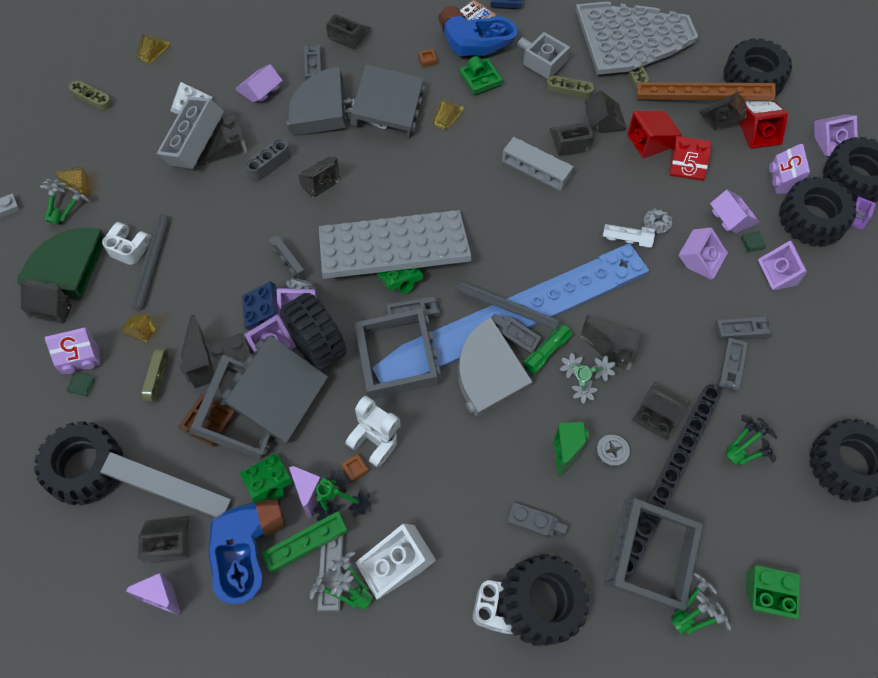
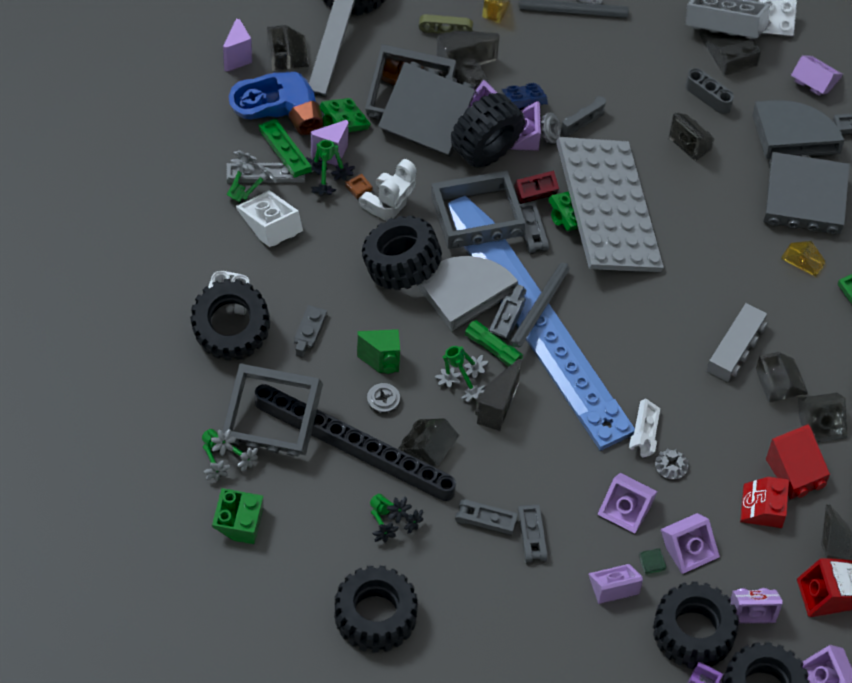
camera: 85 degrees right, 5 degrees down
(372, 299) = (536, 187): none -> dark red brick
(431, 414) = (407, 268): none -> black tyre

